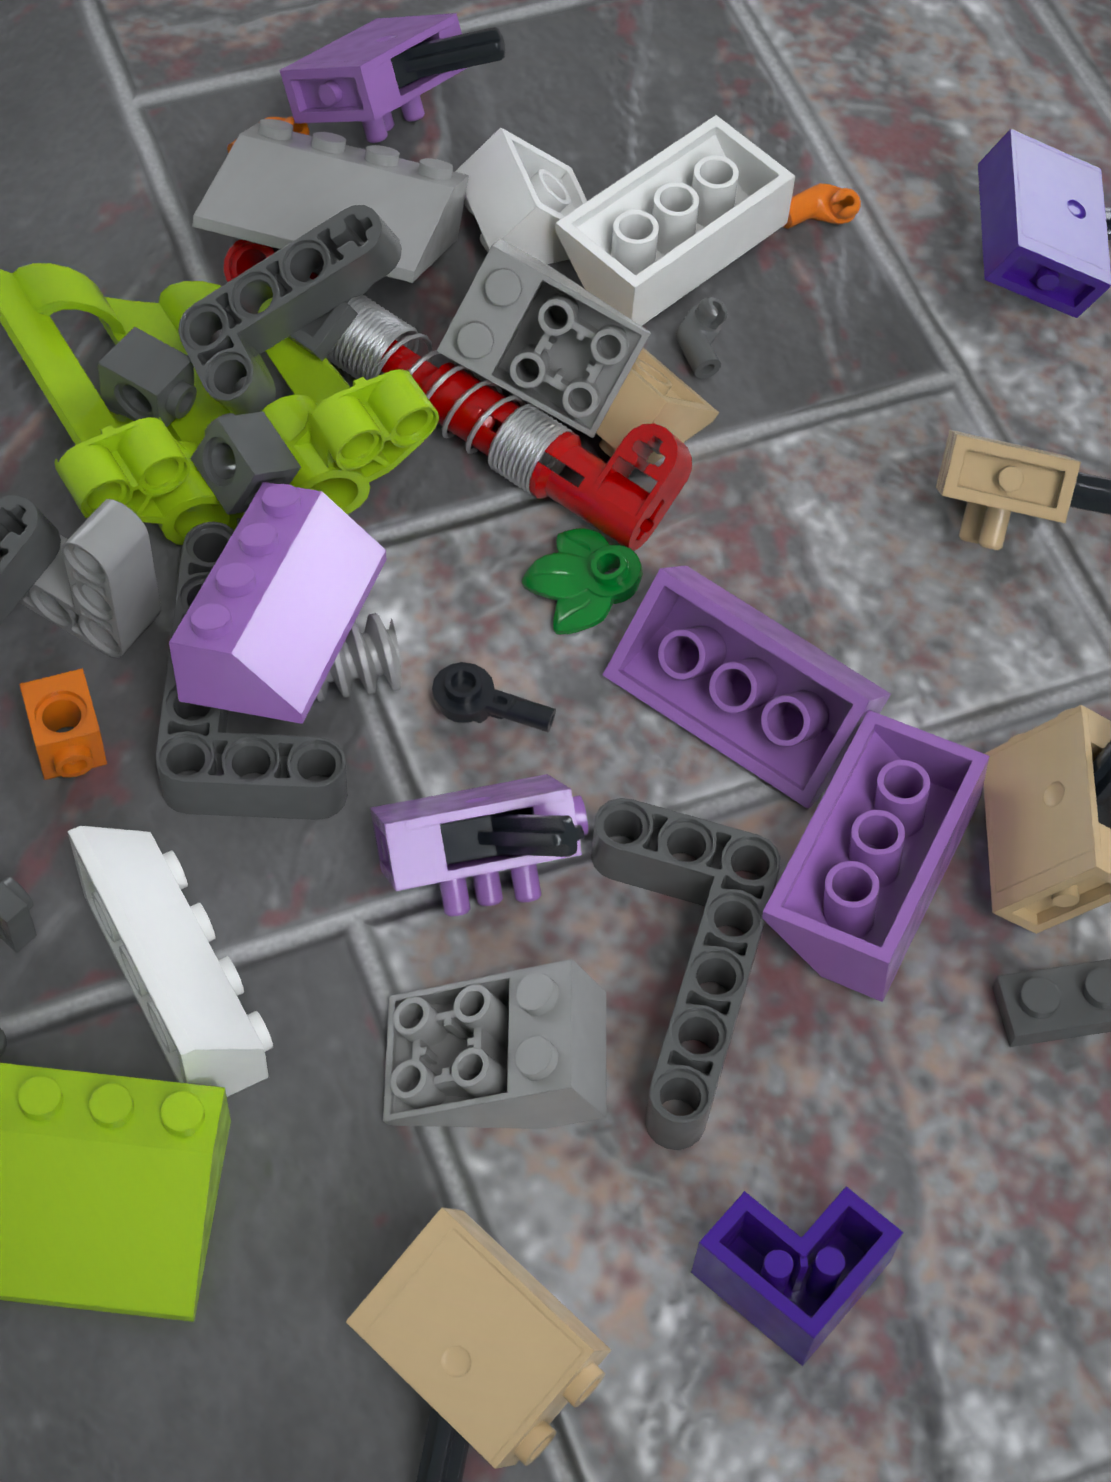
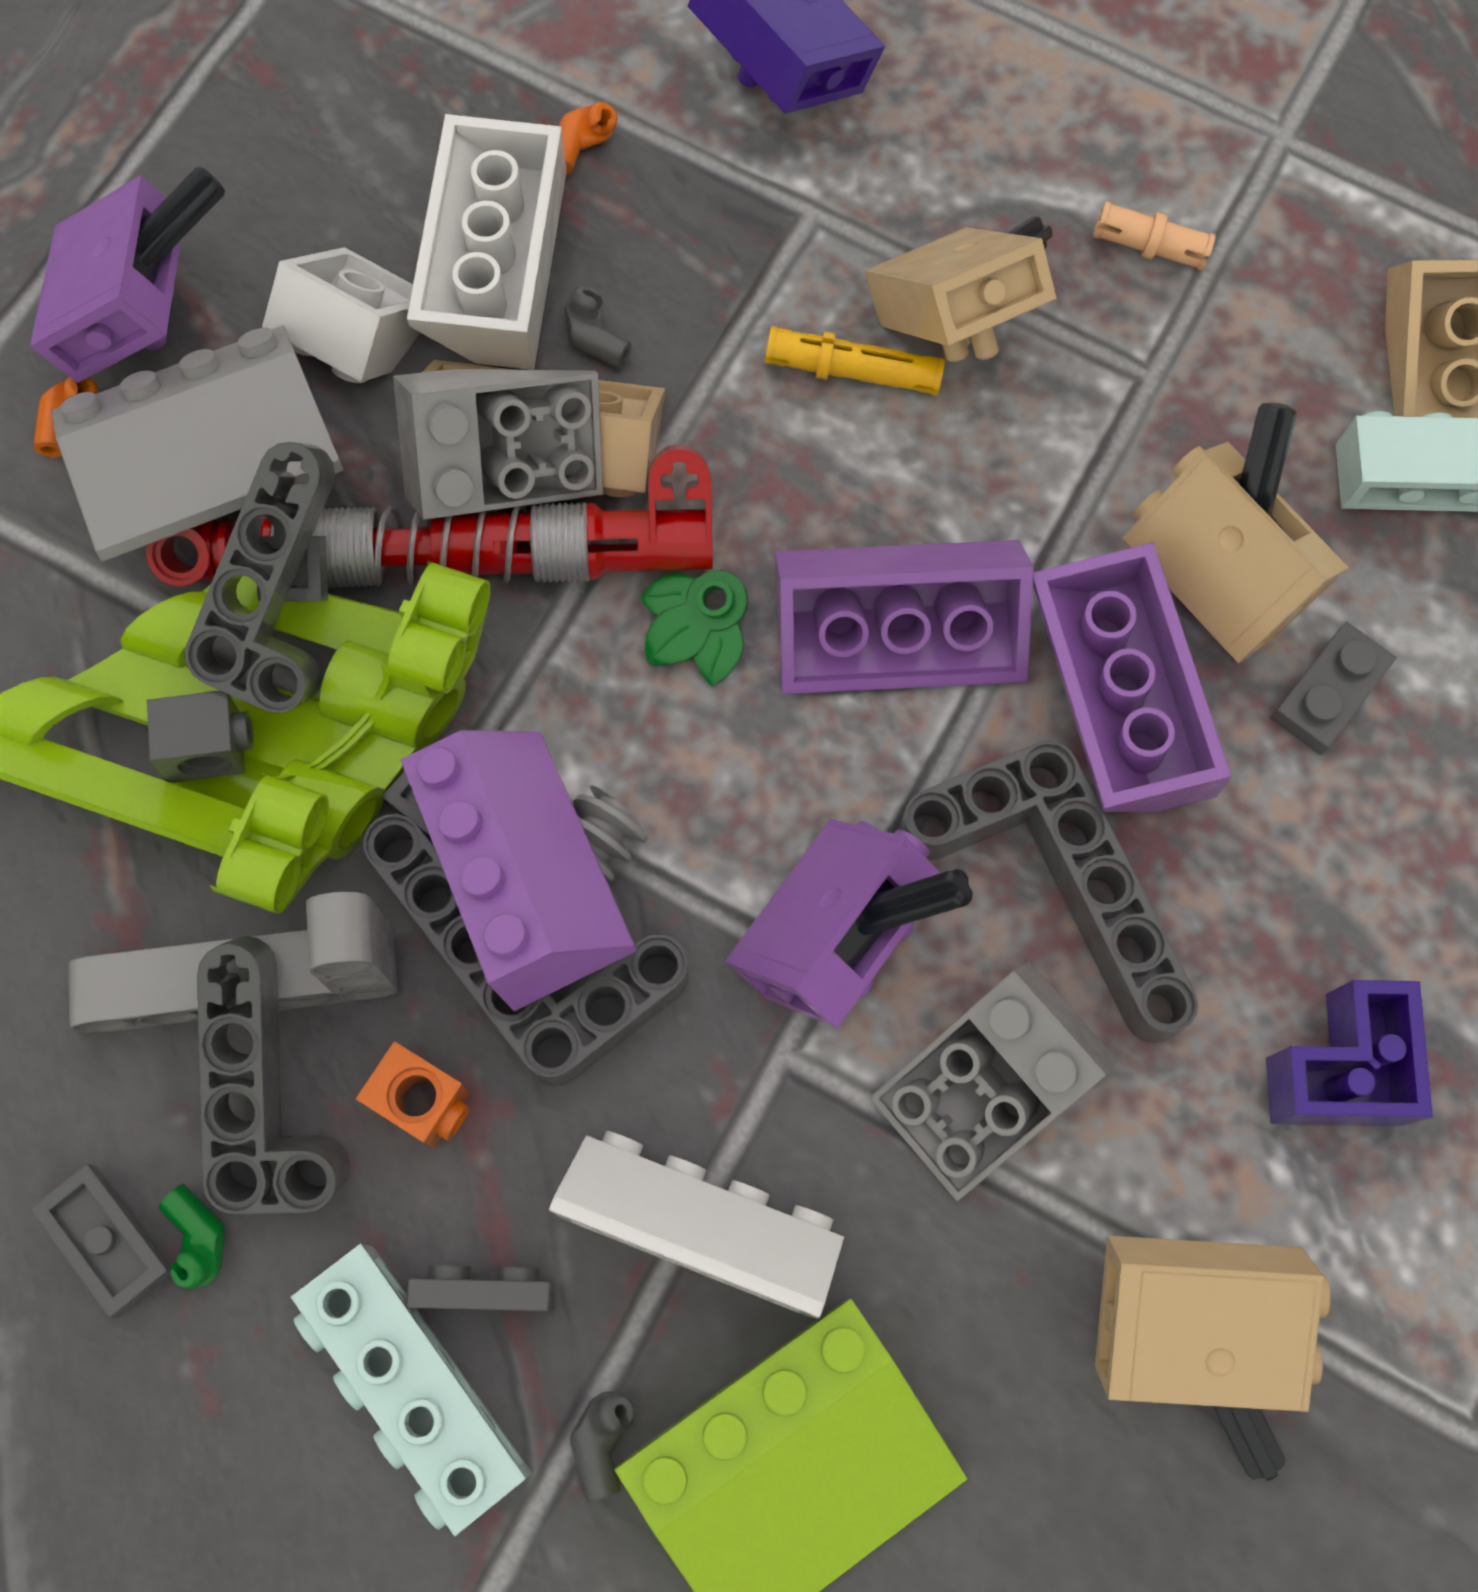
camera: 40 degrees left, 15 degrees up
(240, 456) = (359, 749): dark grey brick -> none
(468, 694) = (699, 796): black plate -> none
(867, 472) = (852, 360): none -> yellow pin

